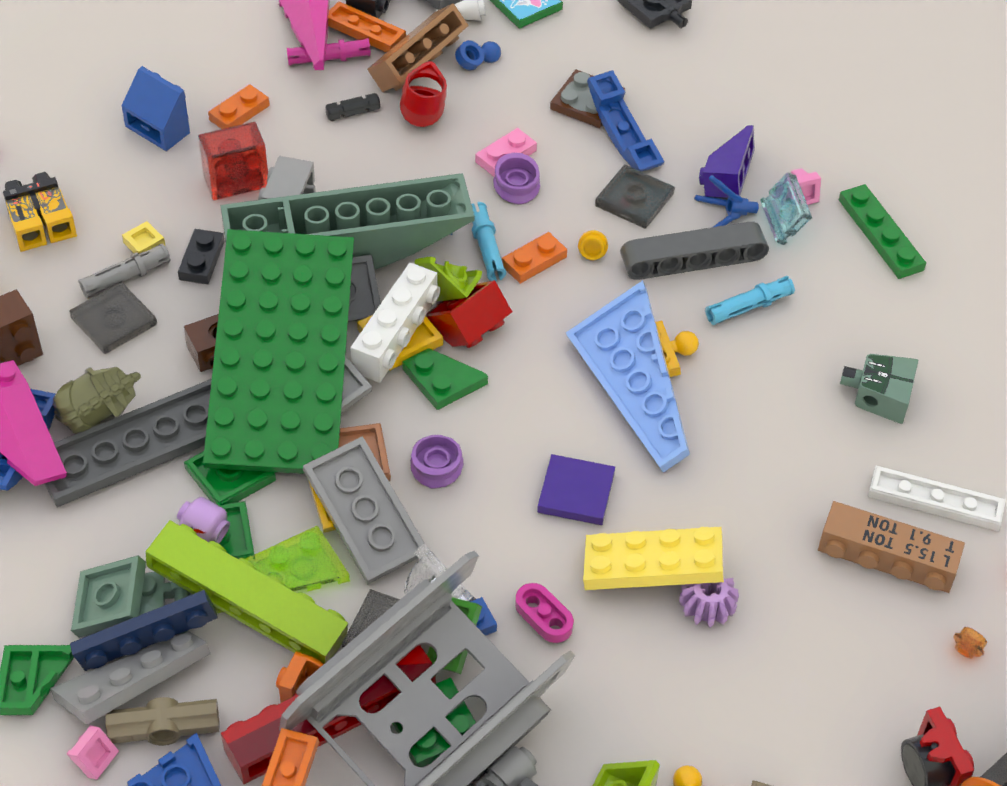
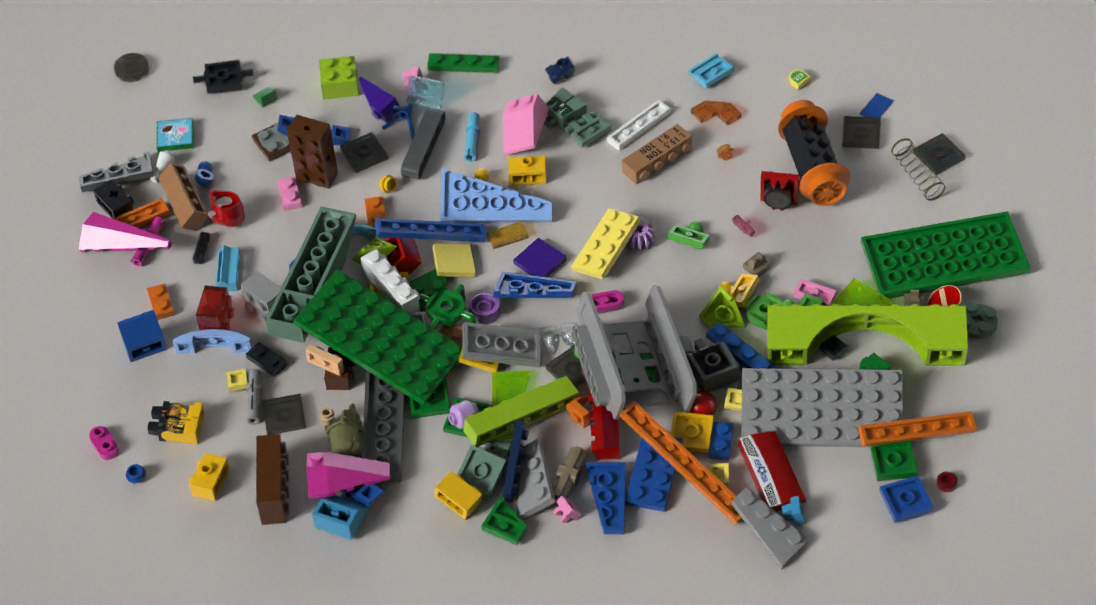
camera: 55 degrees left, 0 degrees up
(49, 587) = (458, 495): none -> yellow brick
(119, 358) = (326, 416): none -> tan pin
(182, 166) = (211, 338): none -> light blue slope
(205, 317) = (325, 360): none -> light nougat plate
(334, 147) = (228, 268): none -> medium azure piece
(396, 424) = (446, 316): none -> green plate
(501, 382) = (453, 260): none -> light yellow tile
(510, 499) = (528, 286): none -> blue wing
(517, 178) = (315, 195): medium lavender piece -> none
(522, 323) = (430, 230): none -> blue plate
(561, 125) = (312, 151): none -> reddish brown brick
(598, 427) = (507, 235): none -> clear yellow tile
(654, 55) = (265, 96): none -> green slope
(733, 393) = (527, 170): none -> yellow brick
(739, 103) = (338, 77): none -> lime brick
(754, 673) = (690, 236): none -> bright green plate
(813, 344) = (523, 123): none -> bright pink slope
(833, 744) = (743, 226): none -> clear pink piece
(873, 433) = (590, 131): none -> sand green plate
(960, 344) = (561, 68): none -> dark blue plate

